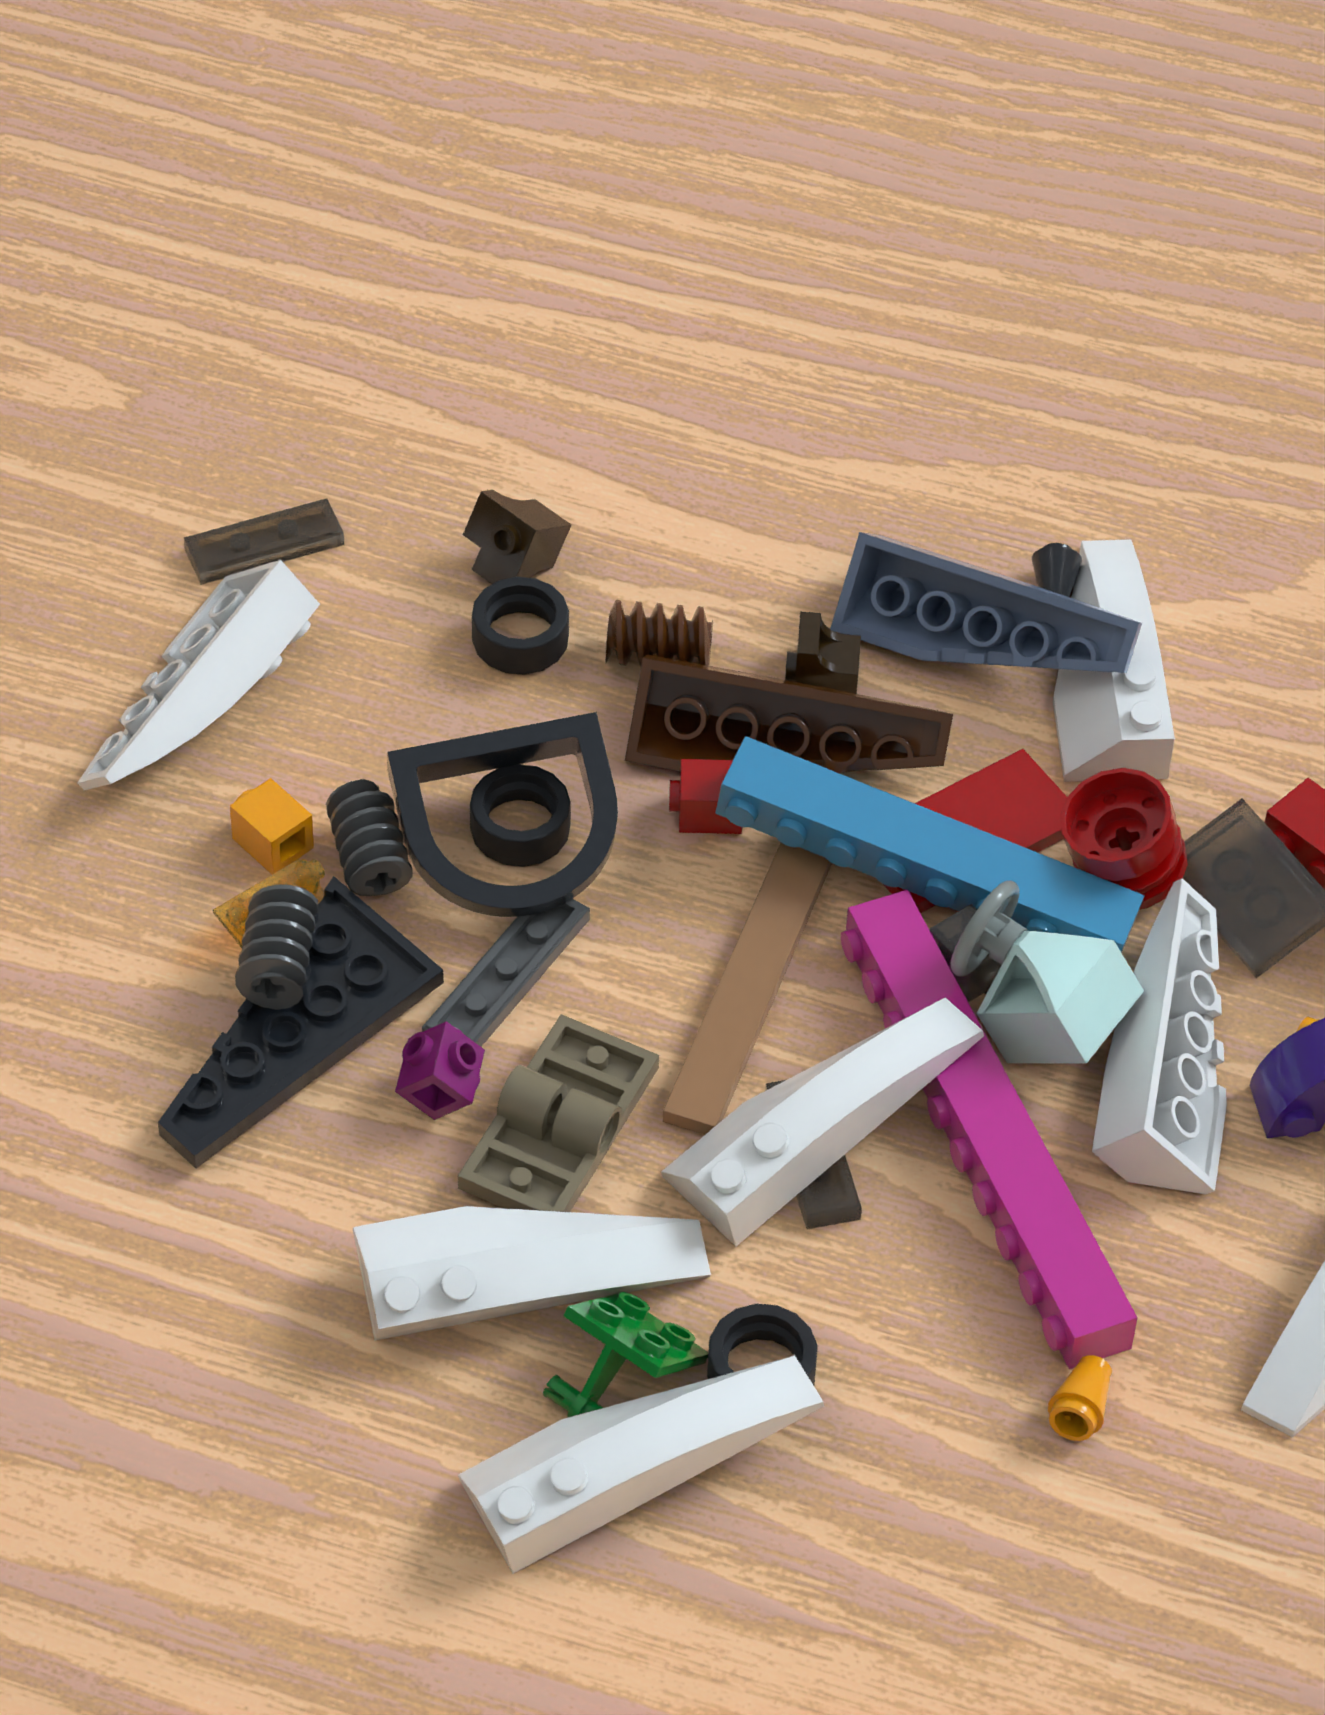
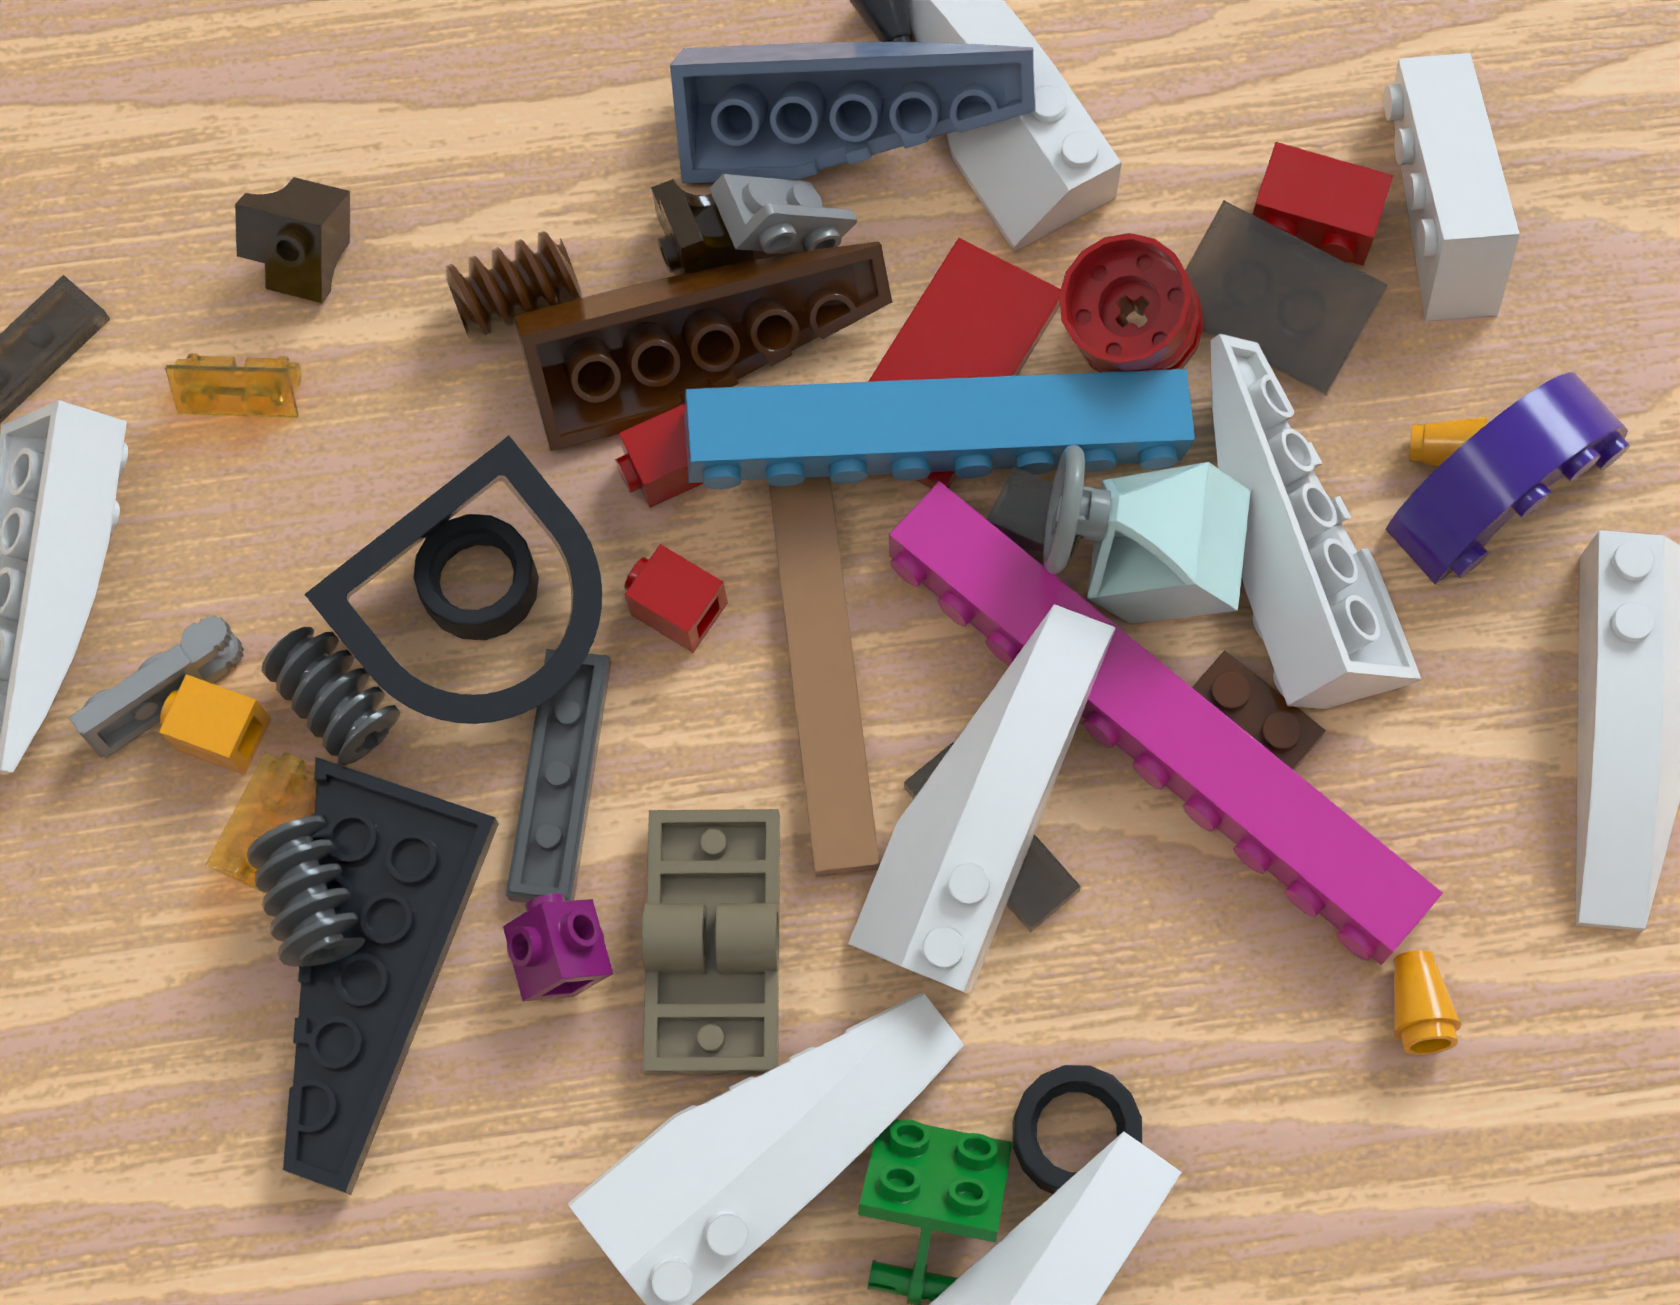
camera: 20 degrees left, 20 degrees up
(212, 788) = (135, 704): none -> light grey hinge
(411, 621) = (221, 388): none -> clear yellow hinge
(521, 596) = (342, 298): black tyre -> none
(662, 890) = (675, 597): none -> red brick
(887, 668) = (778, 215): none -> light grey bracket
(1074, 1157) = (1259, 710): none -> reddish brown plate

